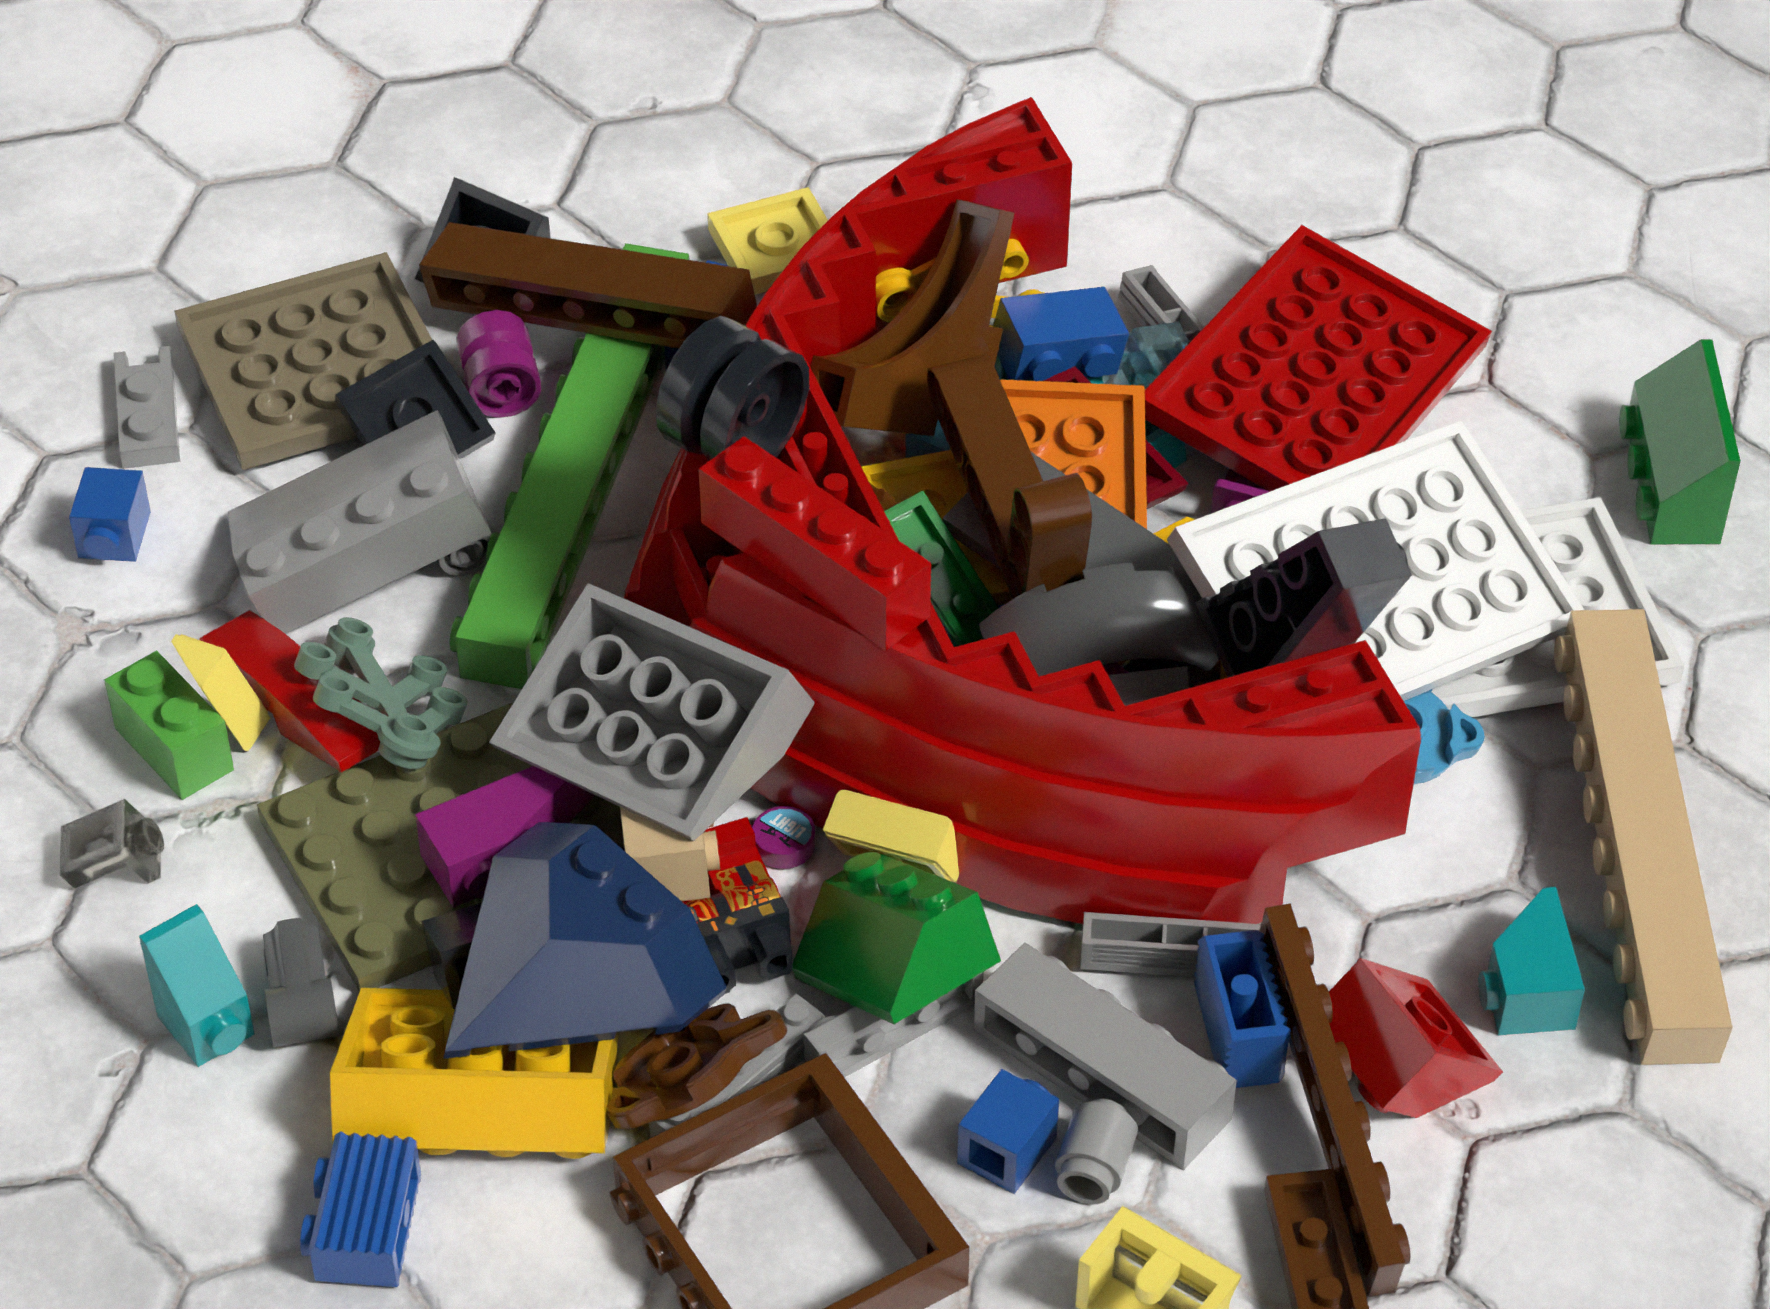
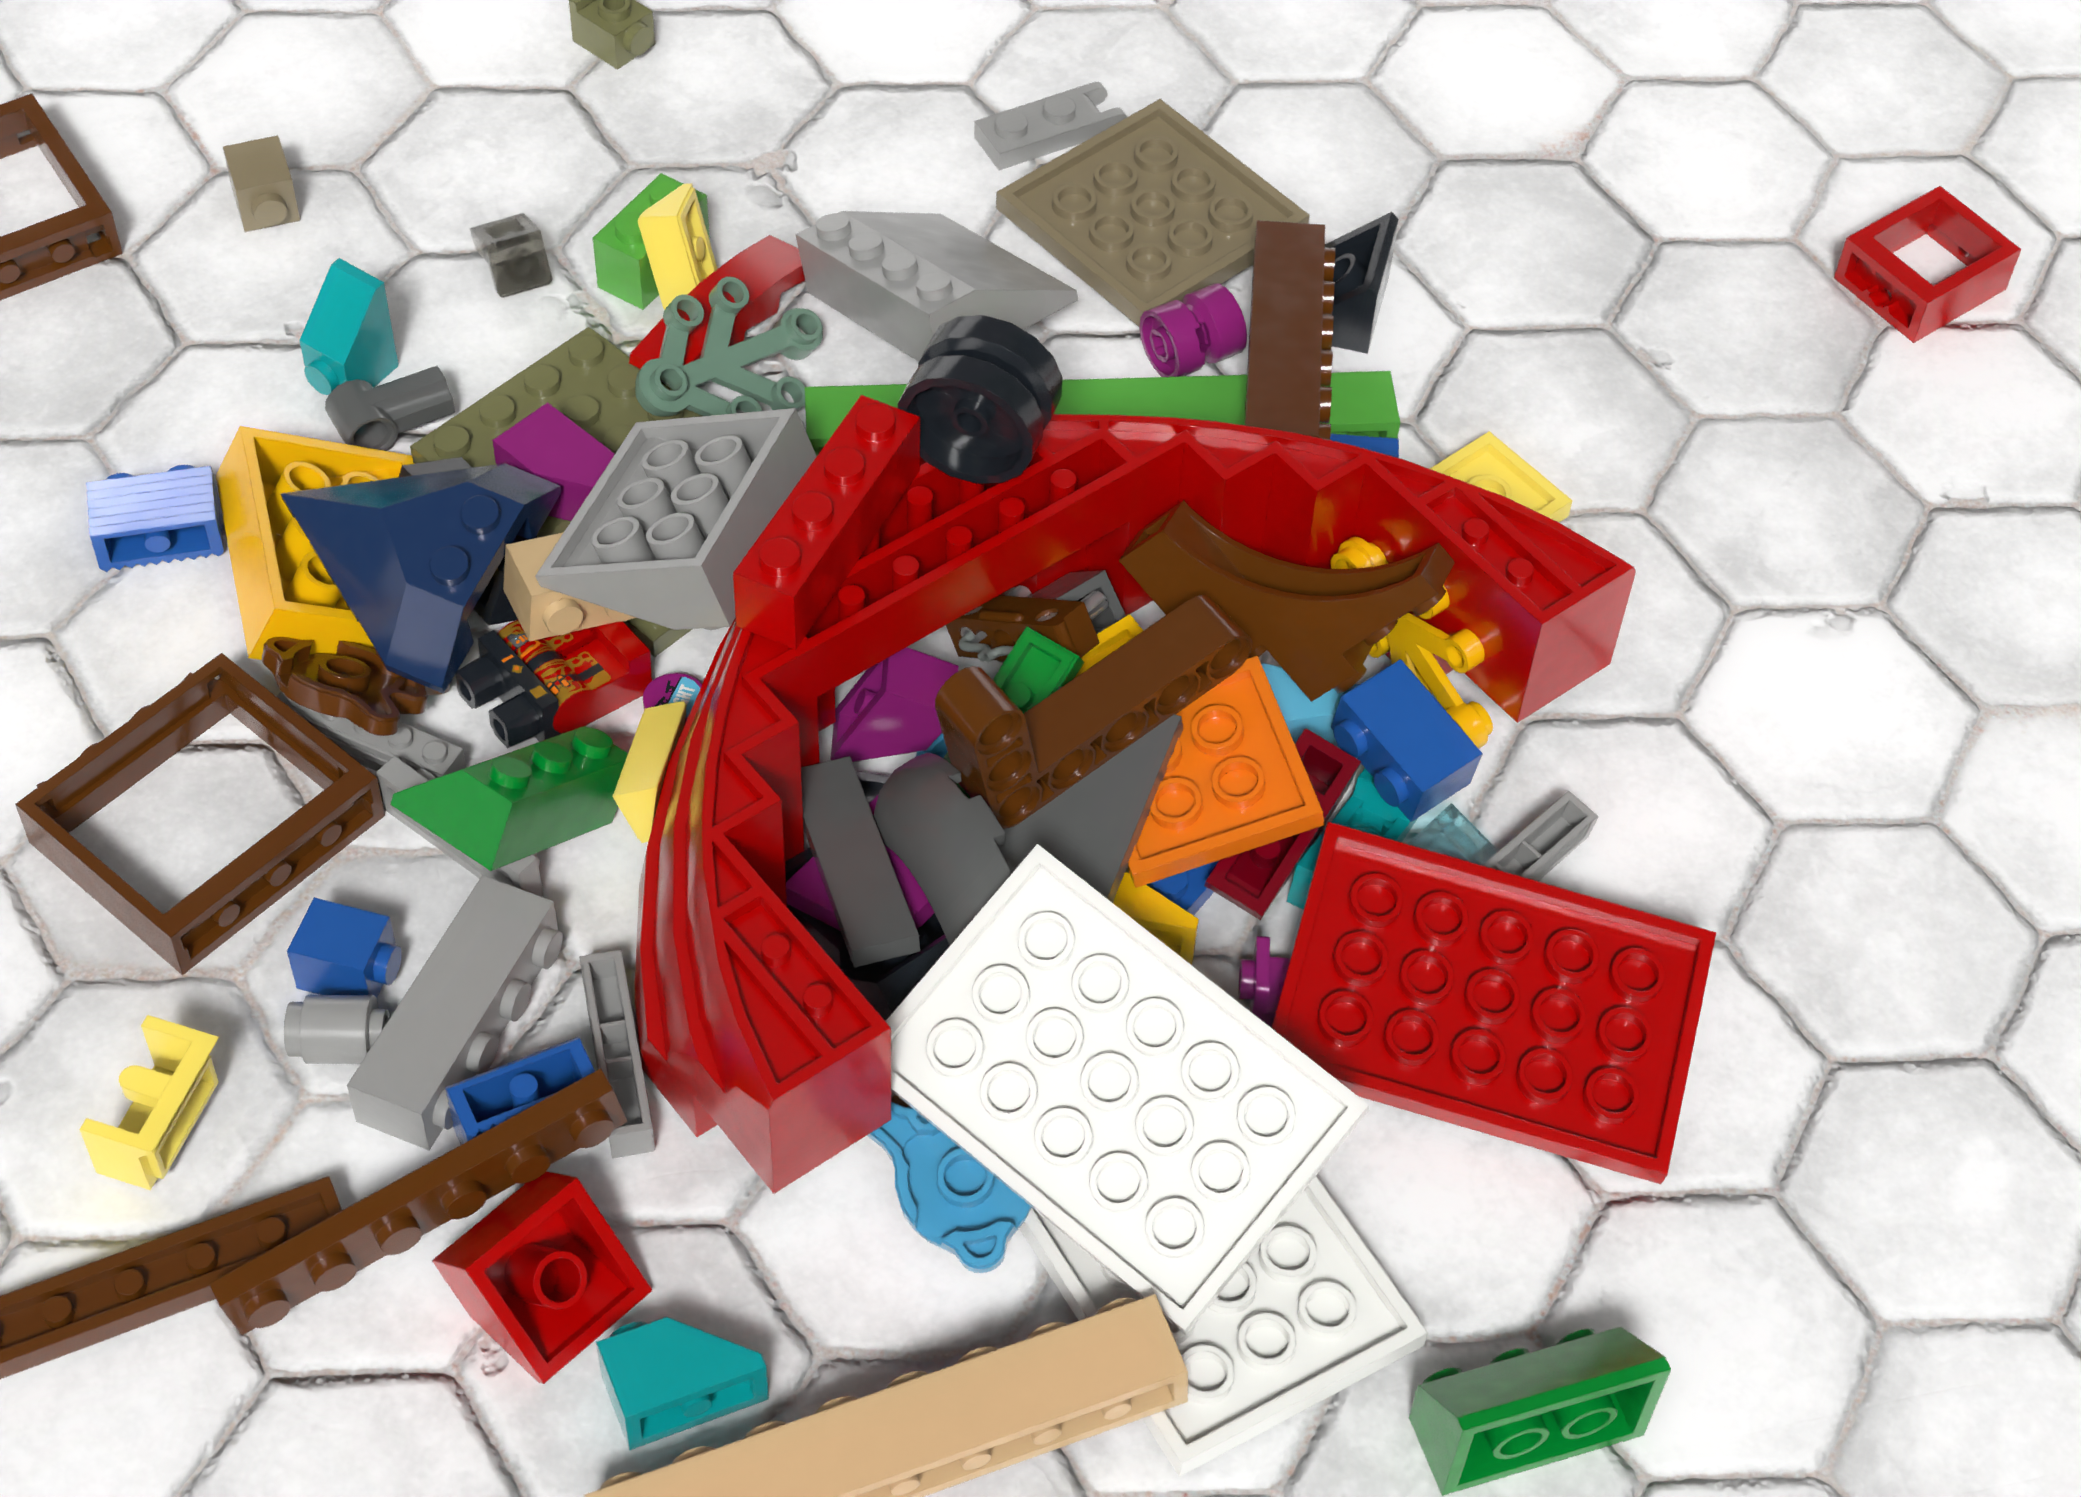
camera: 70 degrees right, 5 degrees up
(110, 514) = (889, 135): blue brick -> none
(411, 390) = (1110, 287): black plate -> none
(1307, 599) = (904, 948): black wedge -> none

